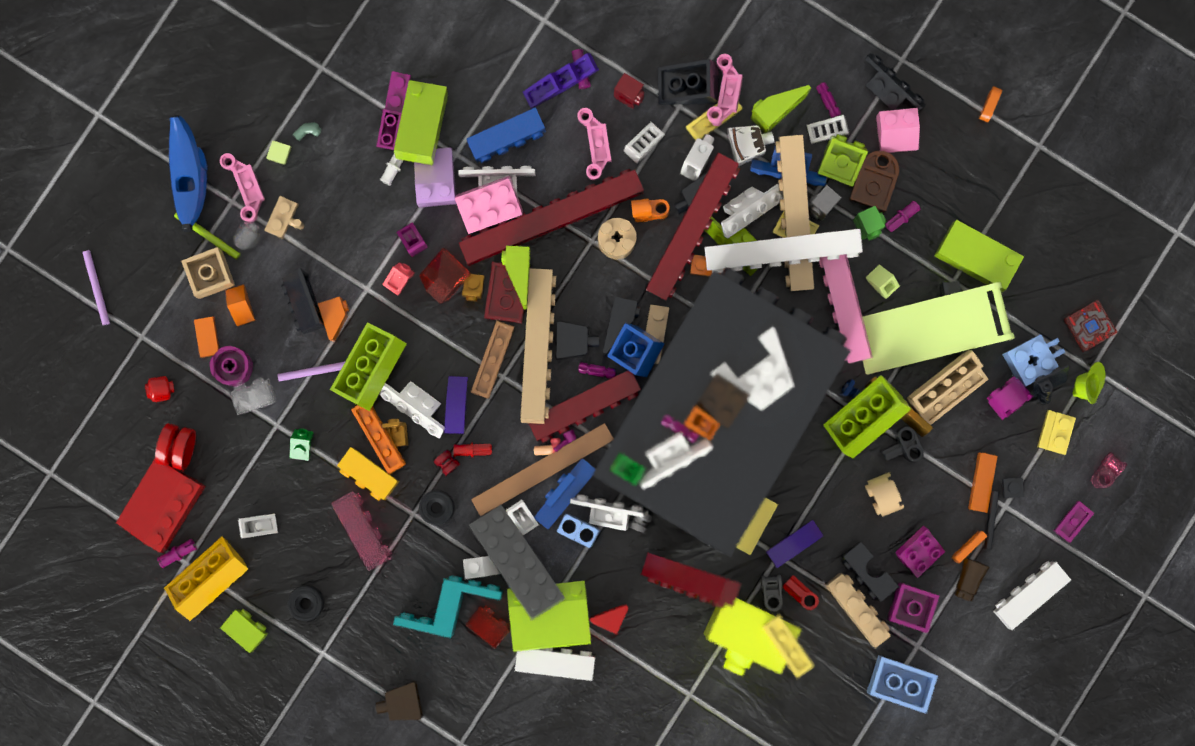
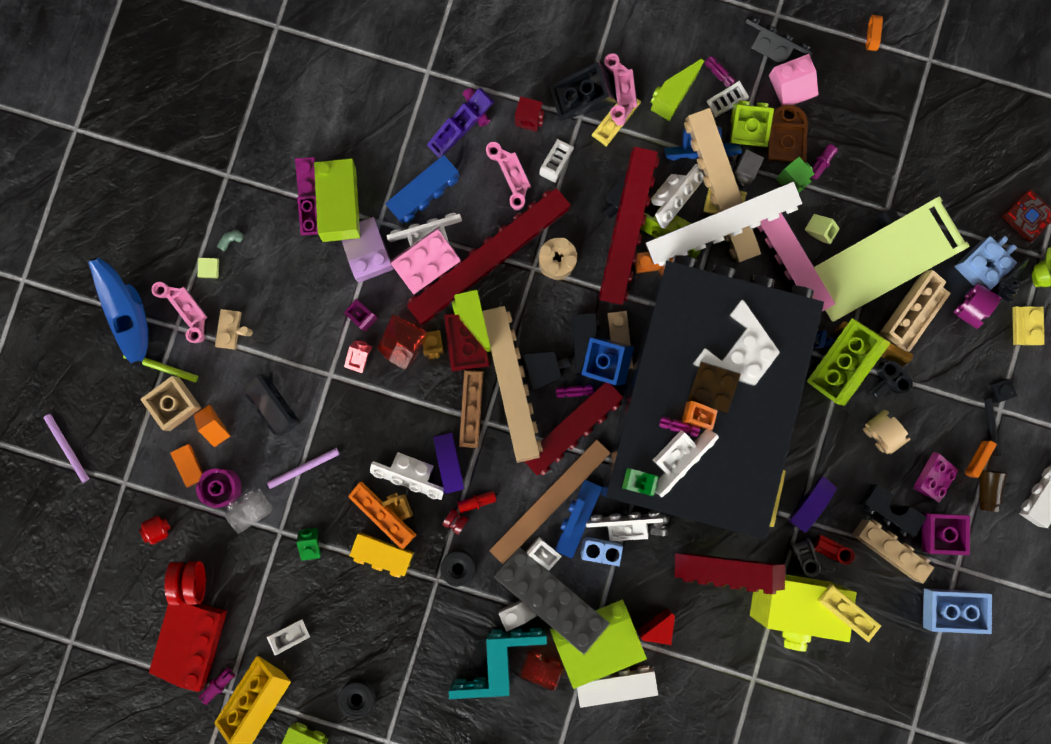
camera: 20 degrees left, 0 degrees up
(246, 235) = (198, 356): clear head -> none
(334, 316) = (305, 410): orange slope -> none
(360, 530) = (391, 612): clear pink brick -> none
(368, 366) = (352, 450): lime brick -> none
(391, 170) = (322, 254): white axle -> none
(547, 449) = (549, 481): light nougat arm -> none
(569, 437) = (566, 462): magenta hand -> none
(645, 210) = (577, 224): orange piece -> none
(698, 157) = (613, 160): white torso -> none
(748, 143) = (656, 132): white torso -> none
(978, 255) = (906, 178): lime brick -> none
(982, 482) = (972, 393): orange slope -> none

